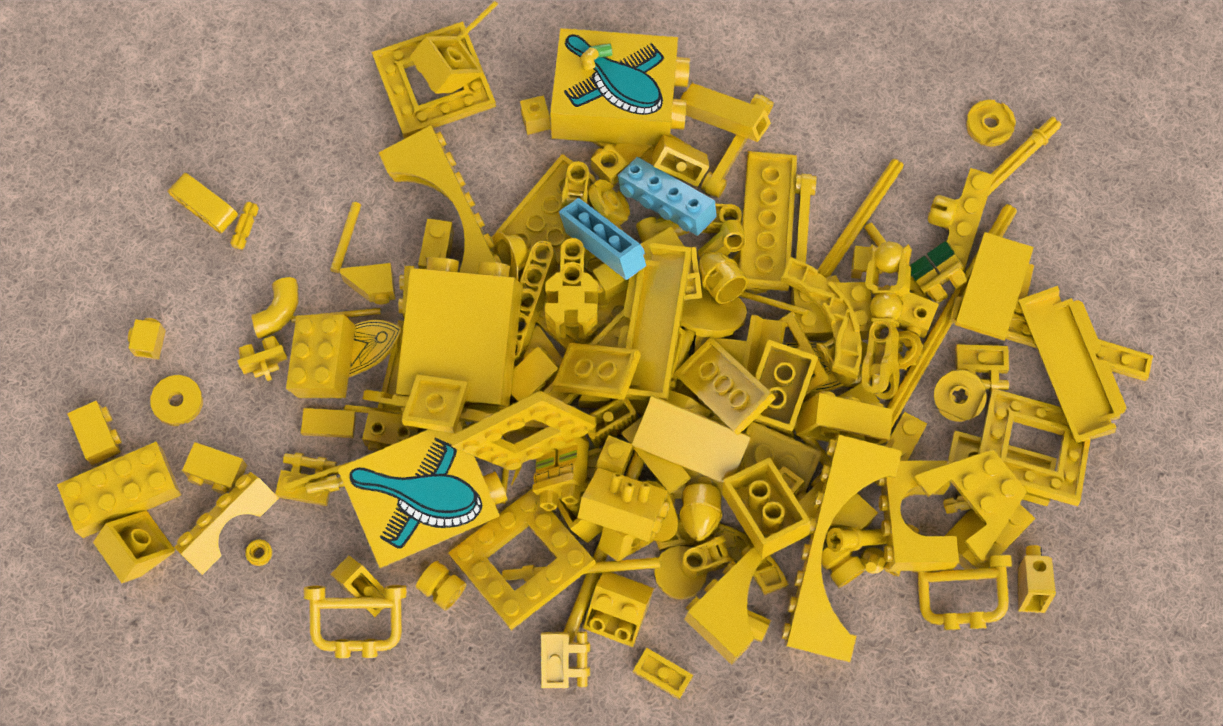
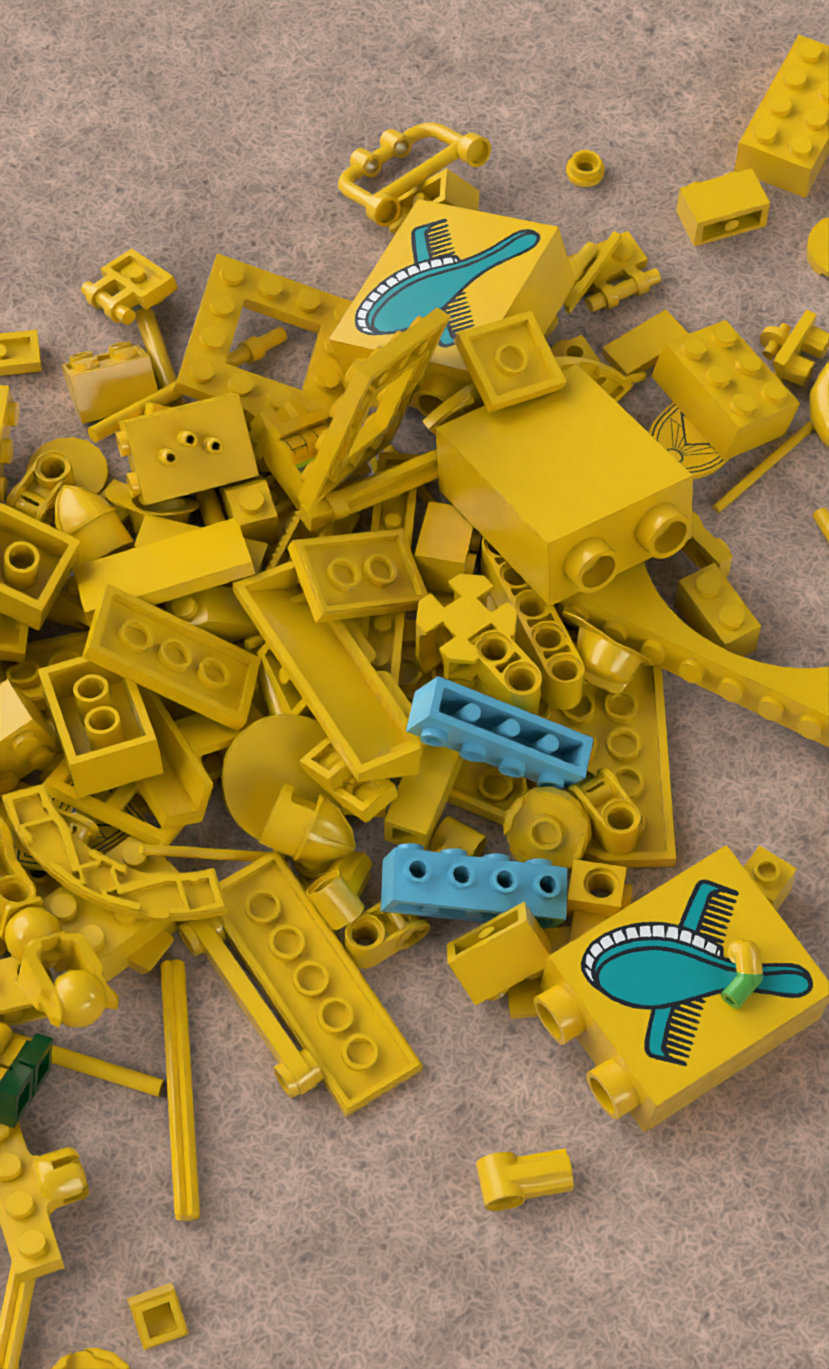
camera: 140 degrees right, 10 degrees down
(133, 545) = (725, 82): yellow slope -> none
(201, 543) = (650, 194): yellow arch -> none
(371, 282) = (757, 521): yellow slope -> none
(439, 584) = (341, 263): yellow wheel -> none
(714, 183) = (458, 1141): yellow piece -> none
(726, 112) = (497, 1072): yellow brick -> none
(750, 78) = (511, 1179): none -> yellow piece
(860, 261) = (122, 1027): yellow panel -> none
(939, 135) = (157, 1316): none -> yellow slope

